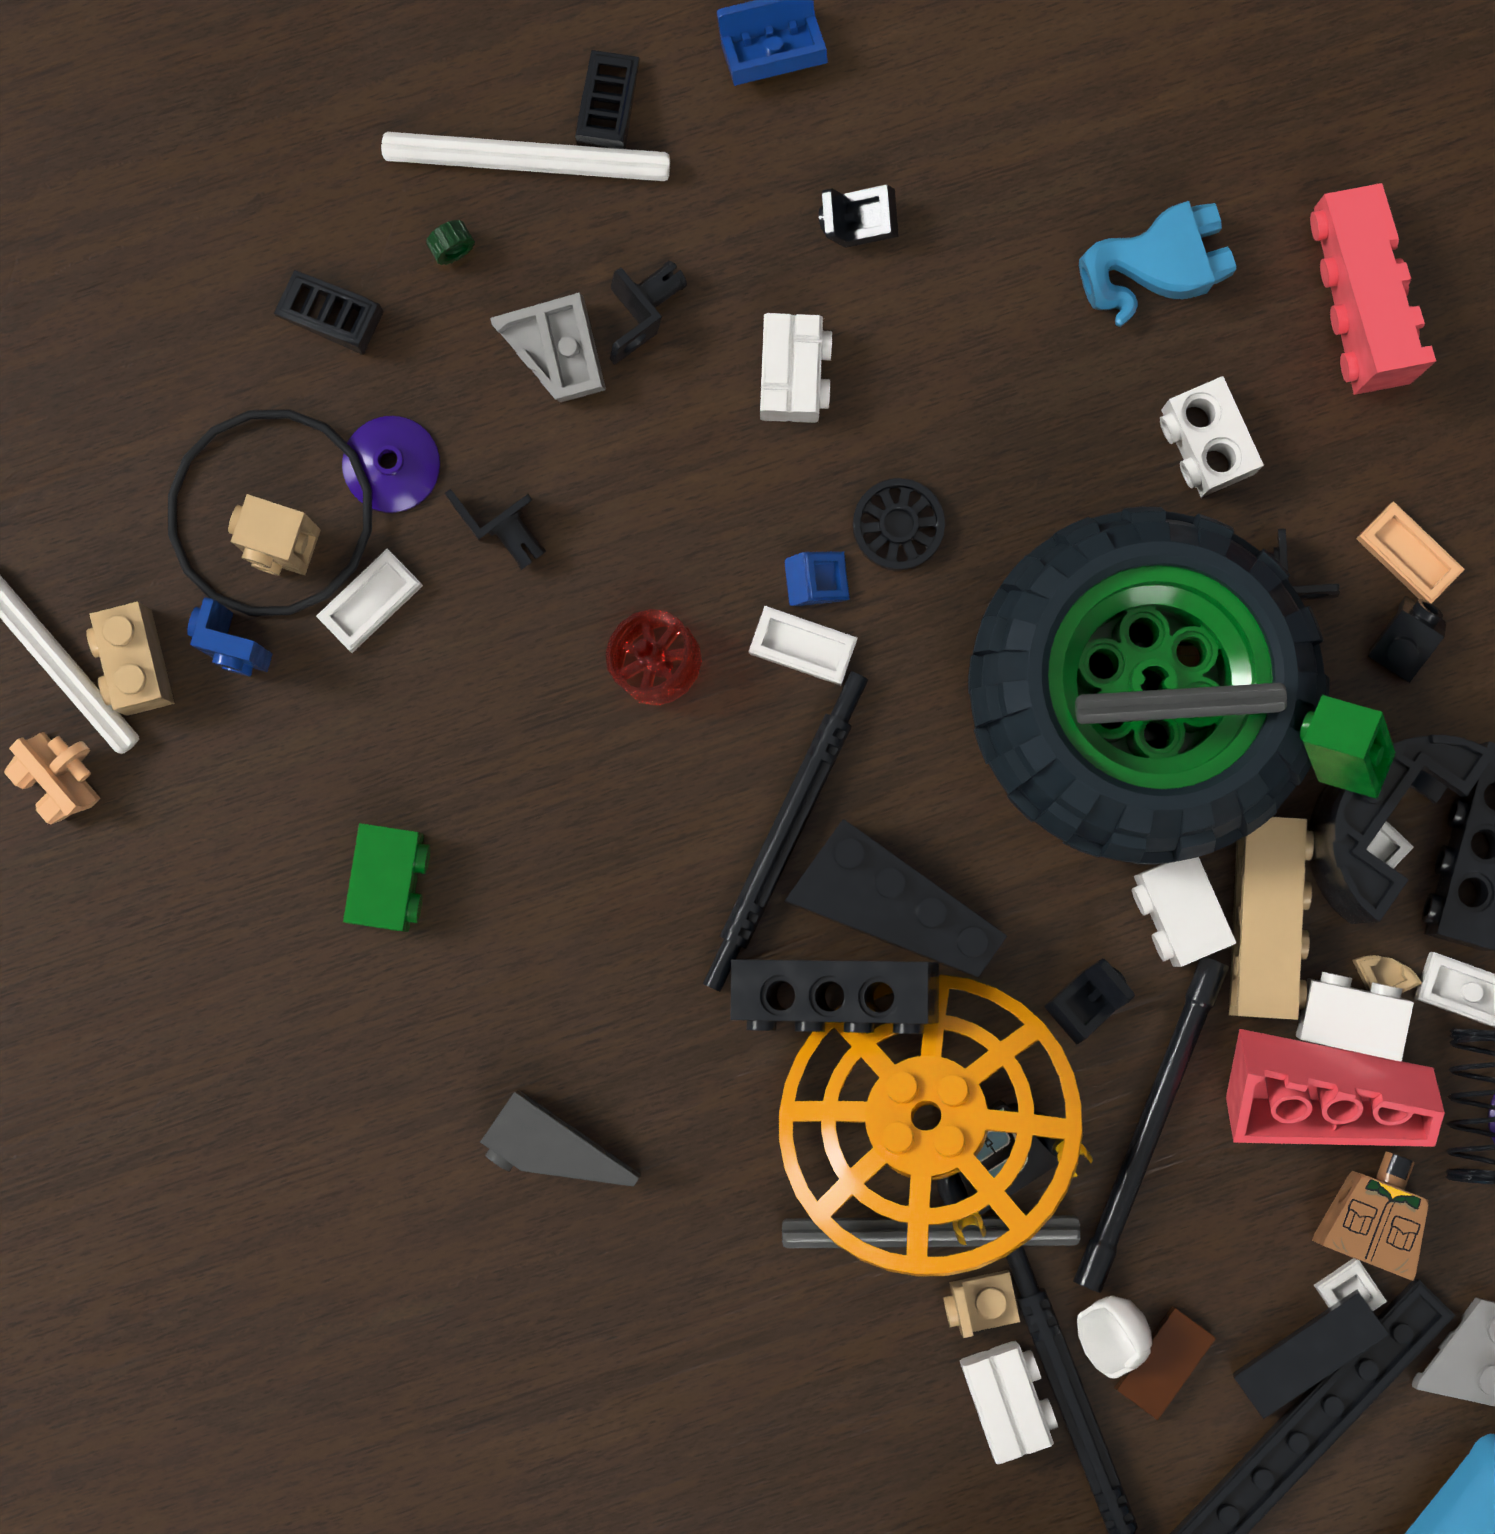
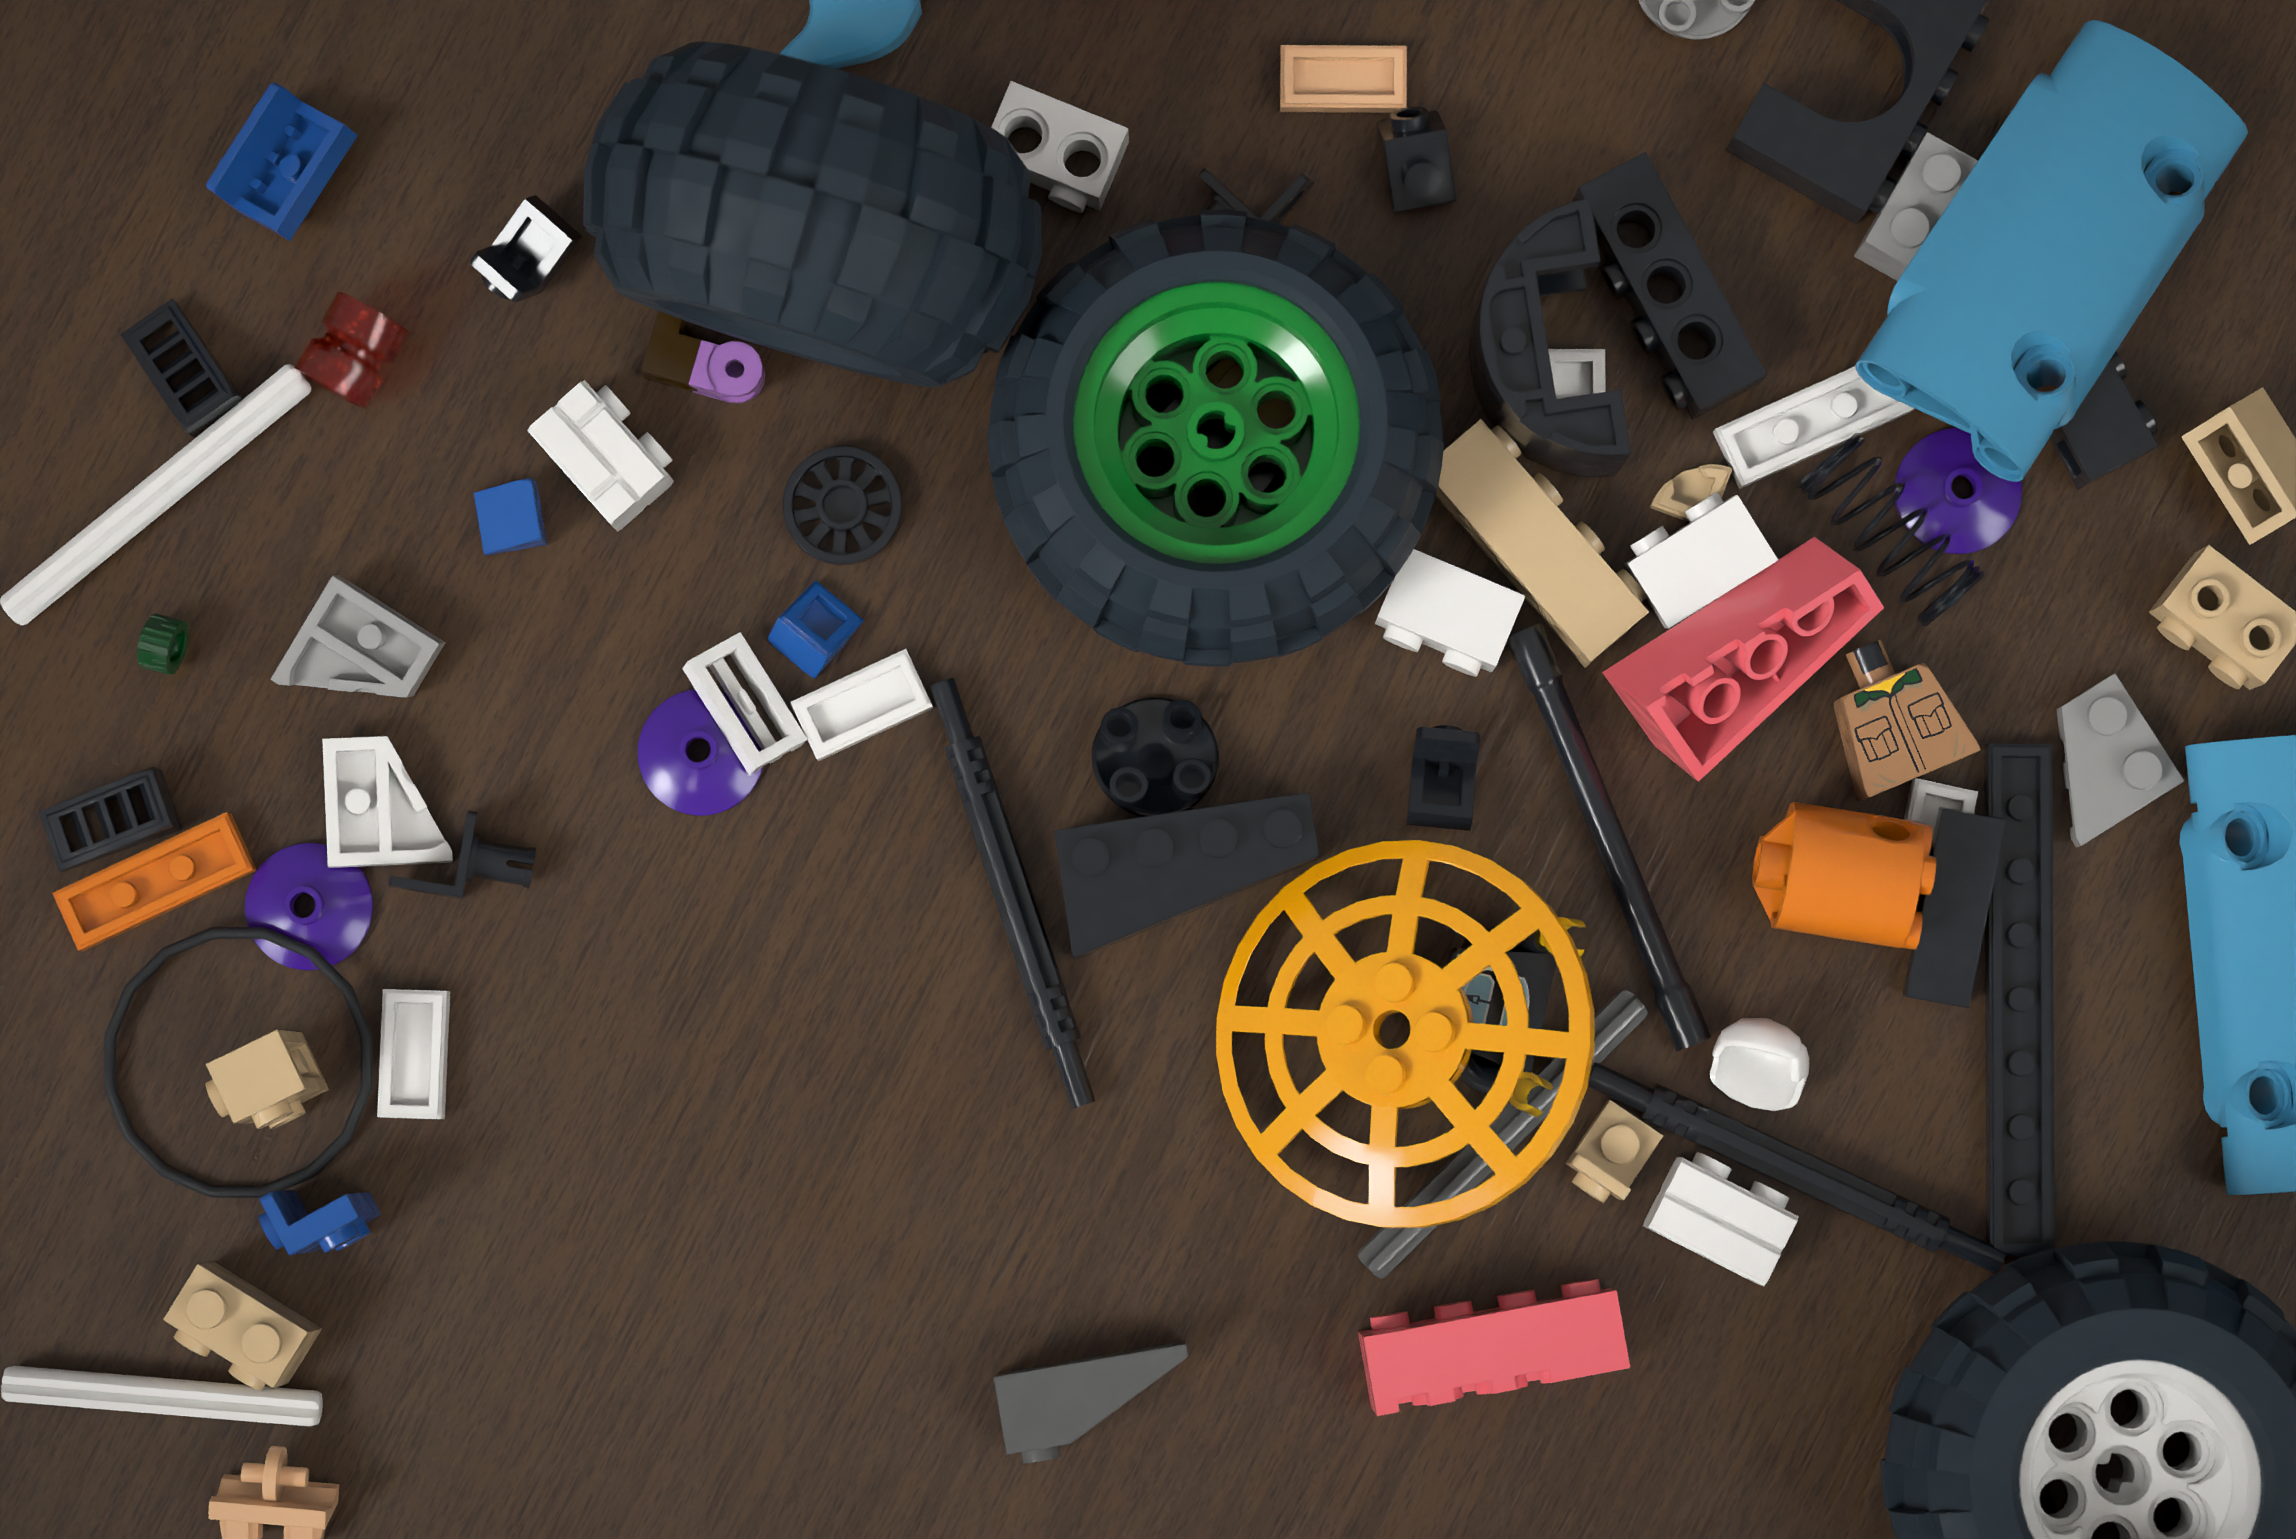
camera: 40 degrees left, 0 degrees up
(320, 369) = (154, 881): none -> orange tile
(386, 878) = (681, 1296): green brick -> none
(479, 444) = (375, 808): none -> white wing
(641, 302) = (399, 527): black bracket -> none
(653, 657) = (732, 849): clear red wheel -> none
(708, 355) = (510, 517): none -> blue slope
(710, 178) = (352, 350): none -> clear red wheel
(715, 590) = (676, 780): none -> dark purple dish
(720, 579) = (723, 714): none -> white tile
(757, 982) = (1121, 1057): black brick -> none
(809, 1347) = (1492, 1347): none -> coral wedge
(893, 370) = (721, 371): none -> leg
(939, 831) = (1155, 756): none -> black dish
(1045, 338) = (813, 213): none -> black wheel
(1174, 1354) = (1833, 1032): reddish brown tile -> none
(1180, 703) = (1257, 430): dark grey axle -> none
(1267, 1277) = (1845, 875): none -> orange cylinder
(1348, 745) = (1447, 322): green brick -> none

